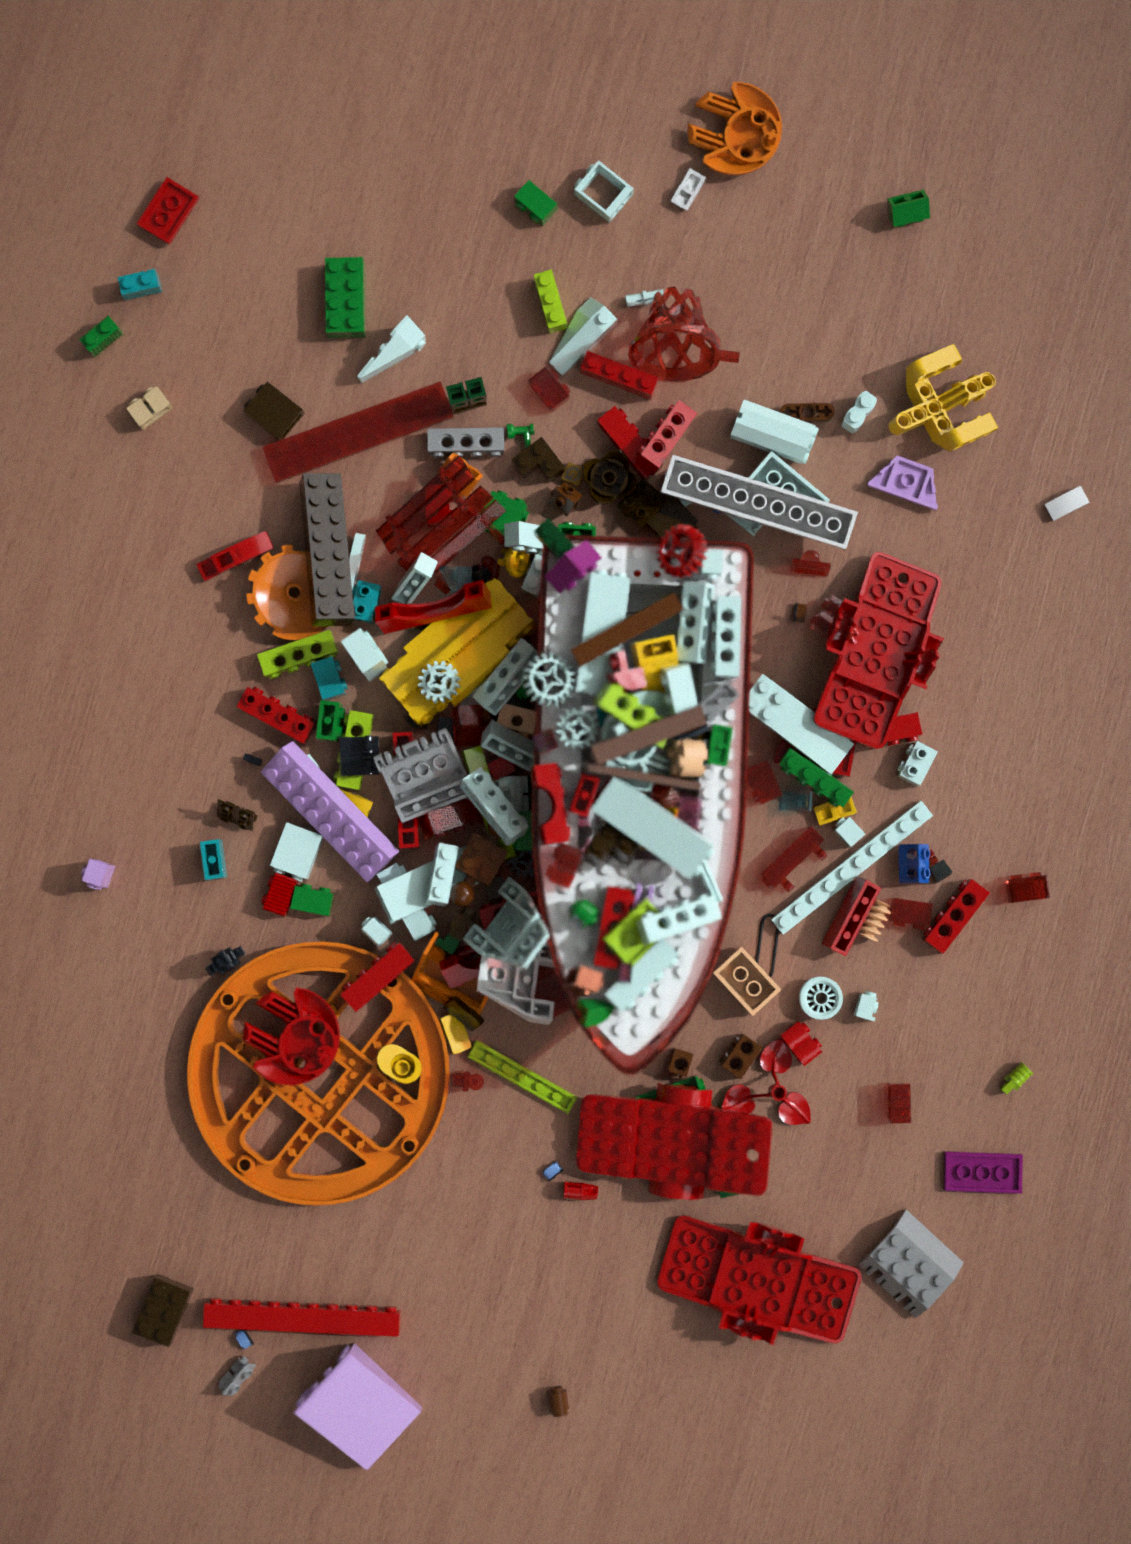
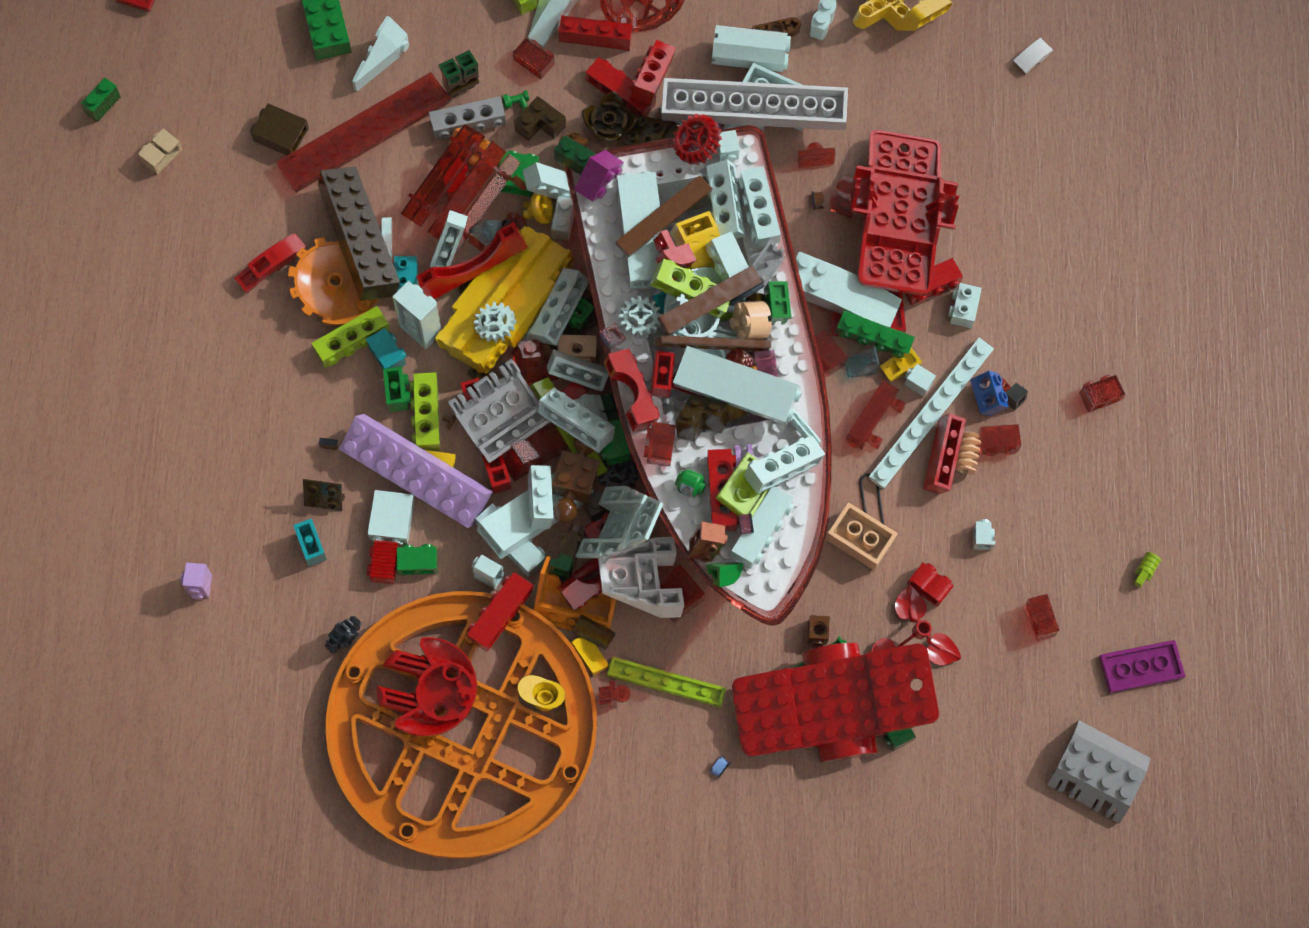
camera: 20 degrees left, 15 degrees down
(139, 284) = (128, 48): teal brick -> none
(279, 717) = (341, 396): red brick -> none
(358, 755) = (432, 411): black hinge -> none
(557, 682) = (616, 278): light aqua gear -> none
(572, 474) = (574, 124): pearl gold tile -> none
(579, 1191) = (752, 778): red hinge -> none
(745, 1059) = (880, 611): reddish brown brick -> none
(759, 1280) = (955, 821): red piece -> none
(804, 1002) = (936, 554): light aqua wheel -> none
(907, 481) = (884, 67): lavender wing -> none
(977, 895) = (1056, 408): red brick -> none

